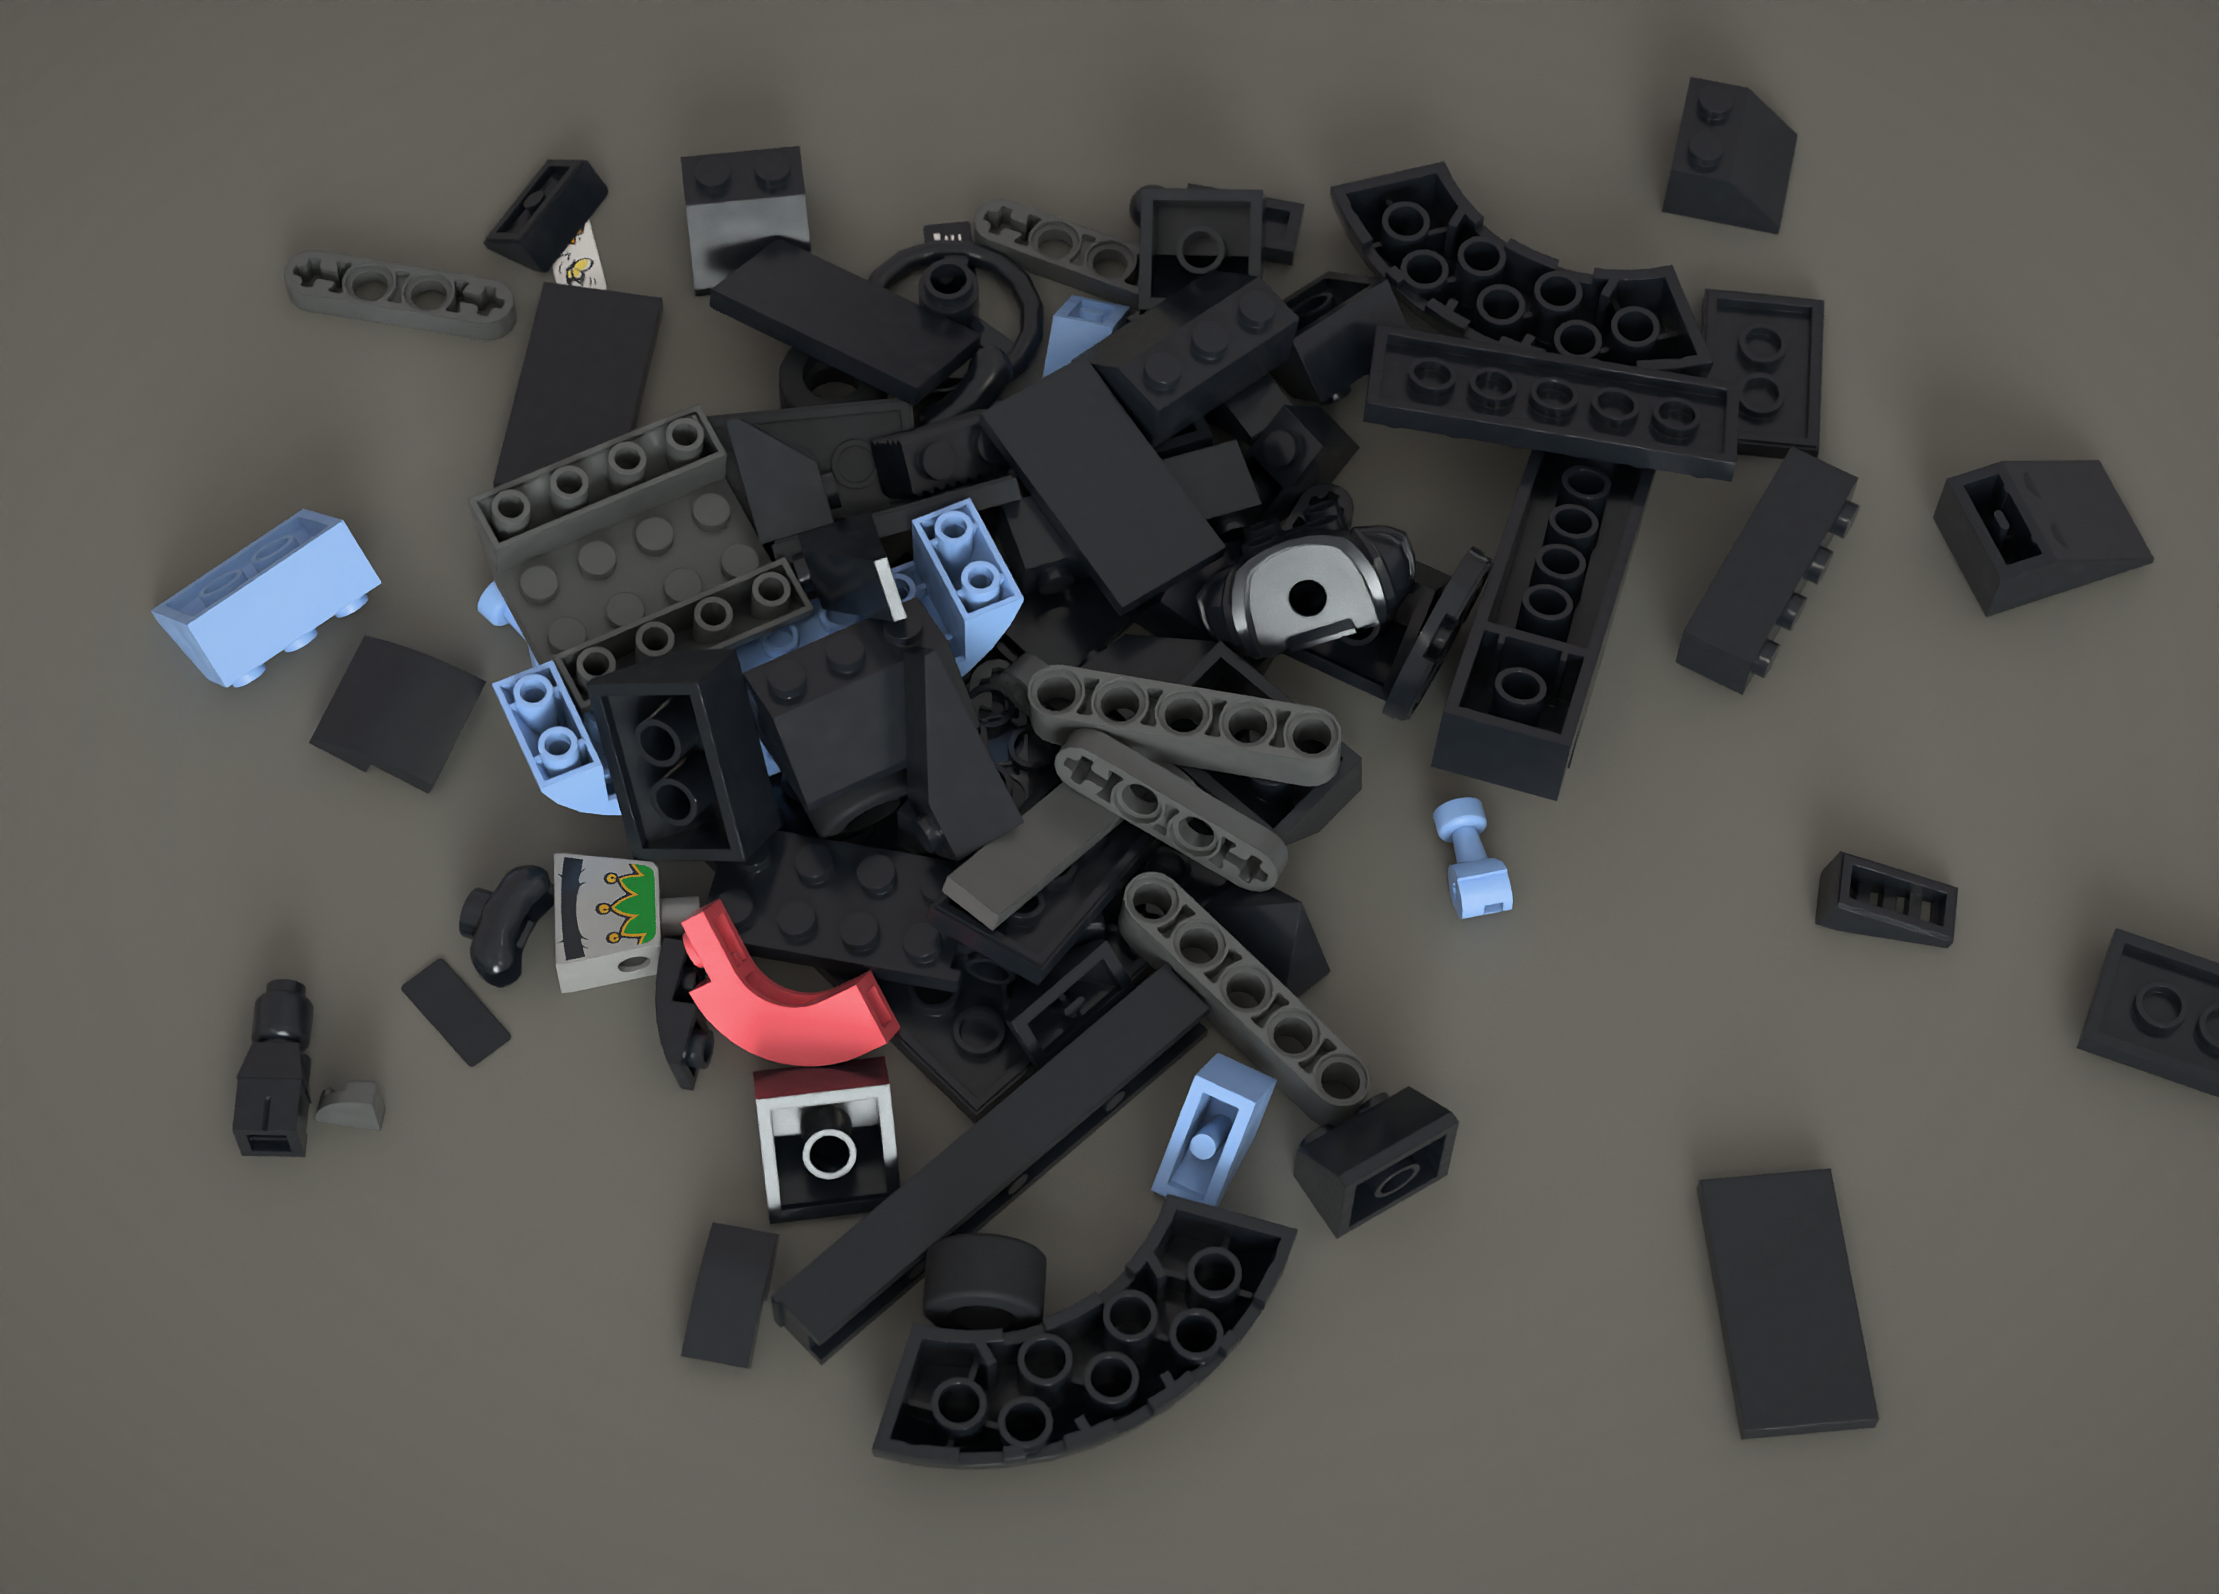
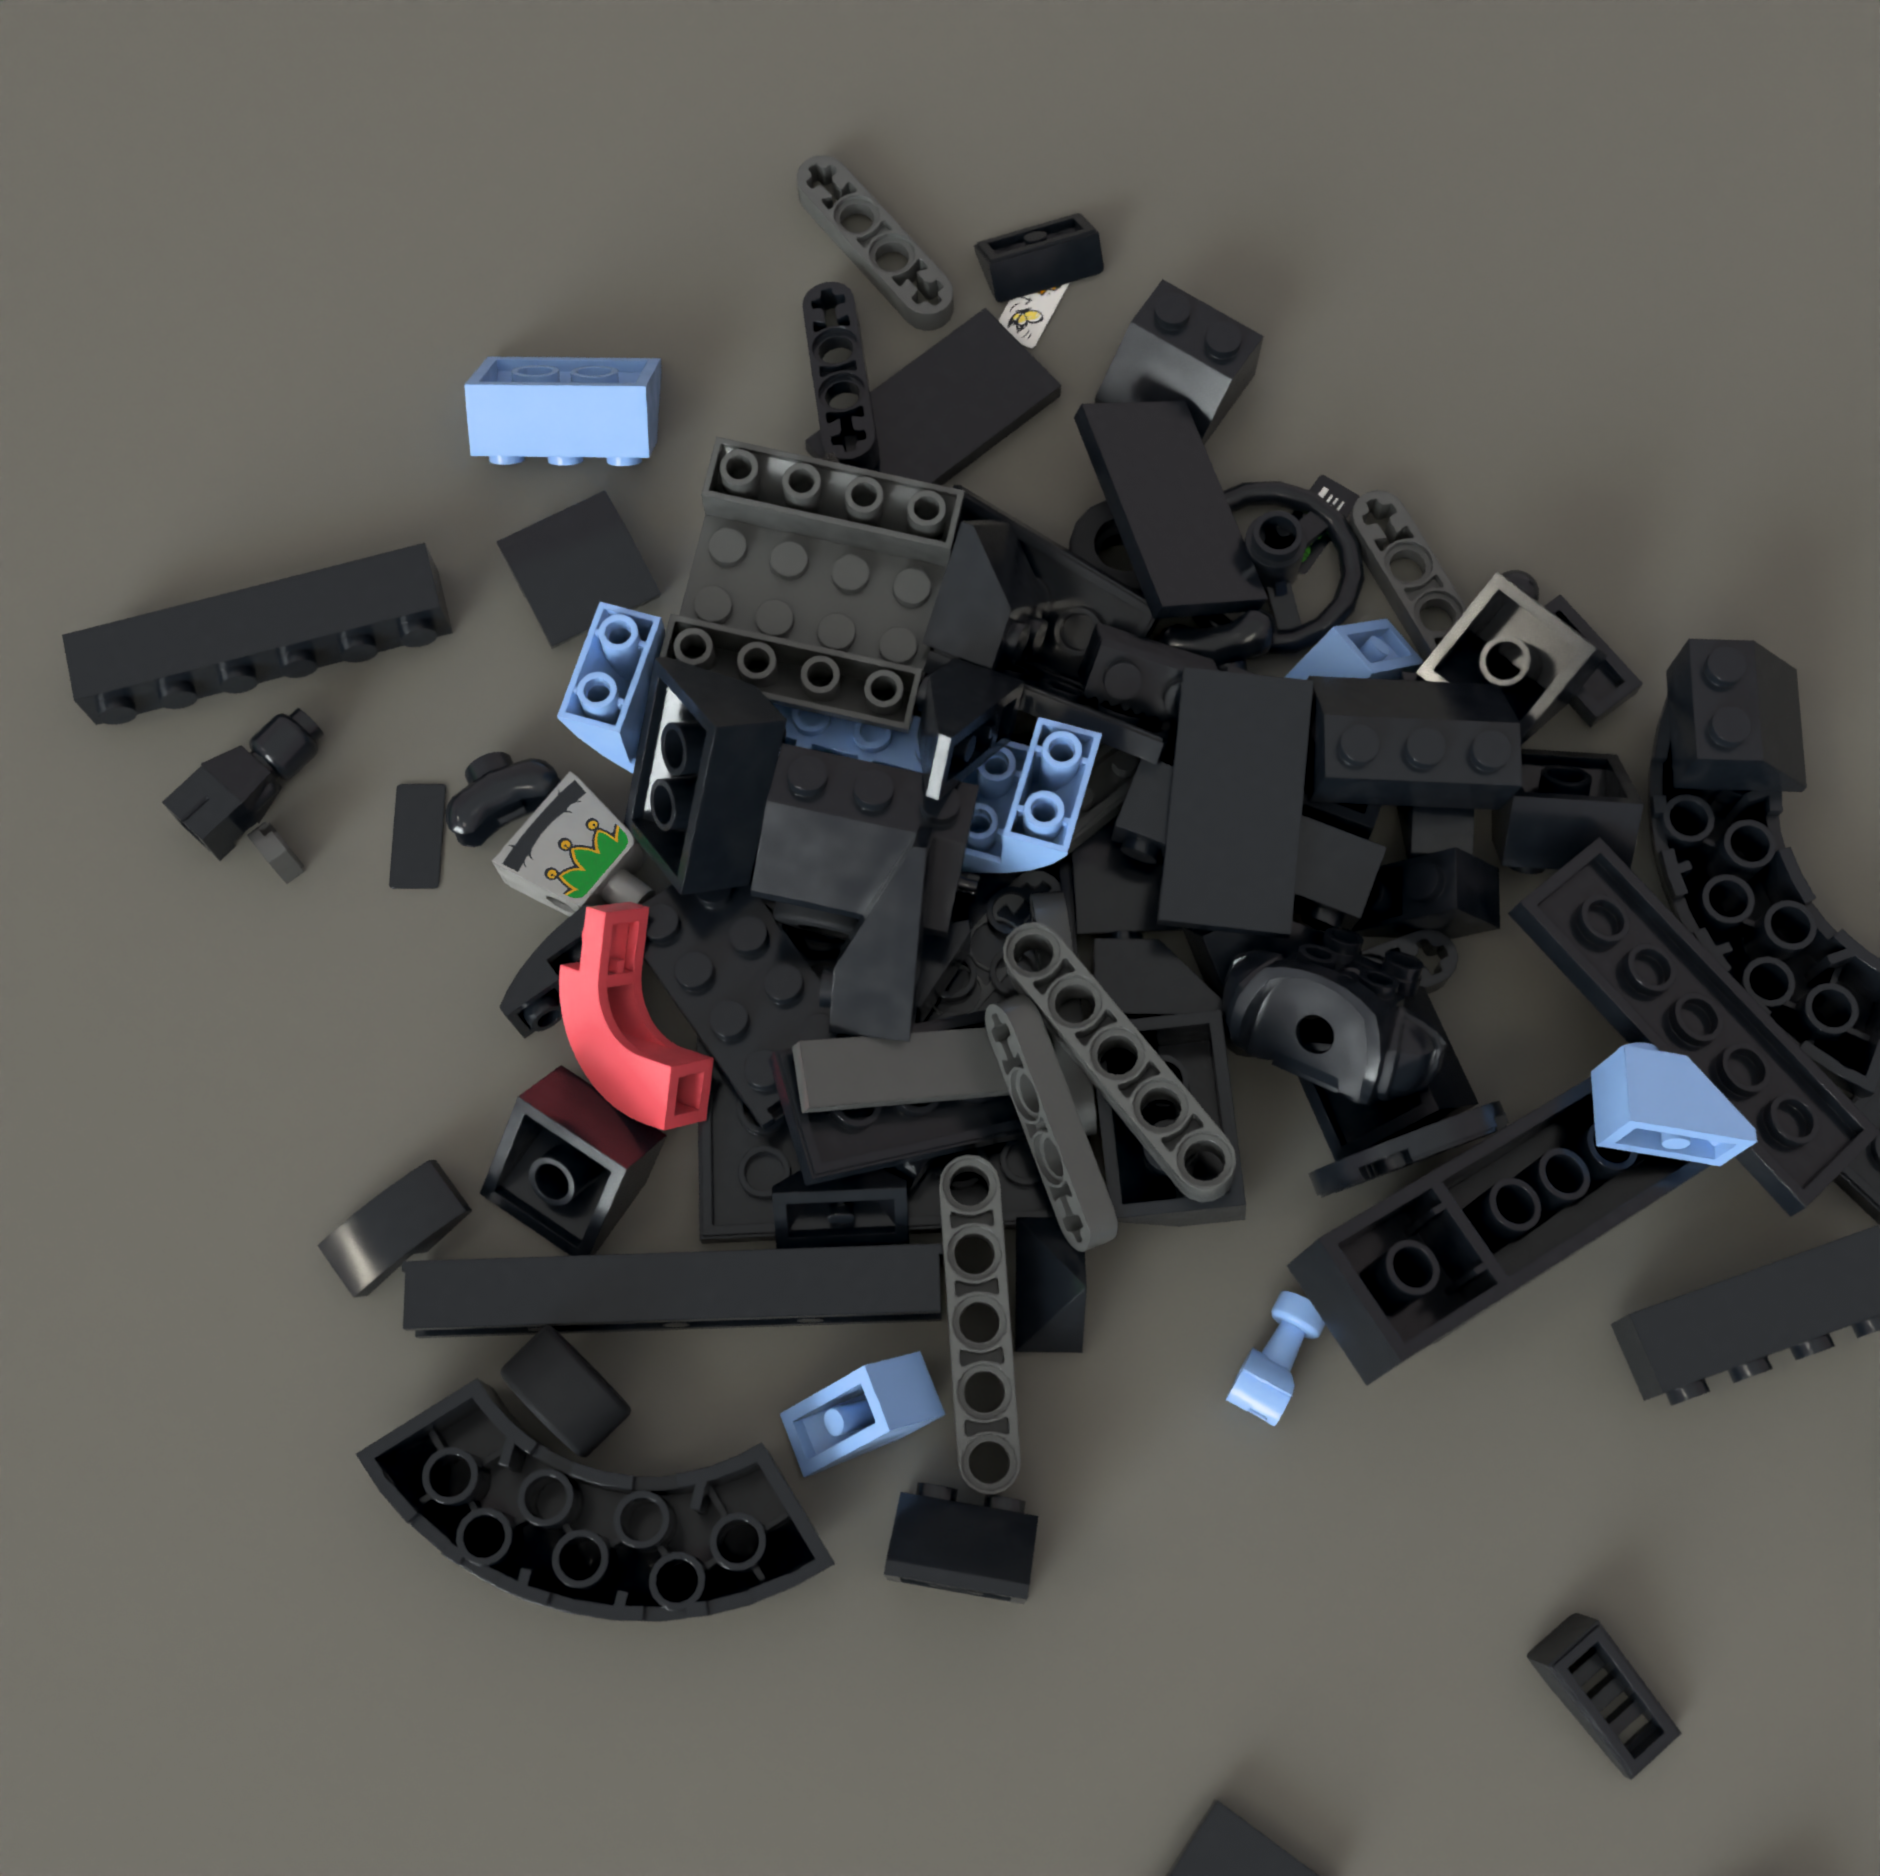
camera: 45 degrees right, 10 degrees up
(174, 957) = (257, 635): none -> black brick
(479, 414) = (840, 377): none -> black beam
(1394, 175) = (1734, 718): none -> black slope
(1588, 467) = (1665, 1108): none -> light blue slope

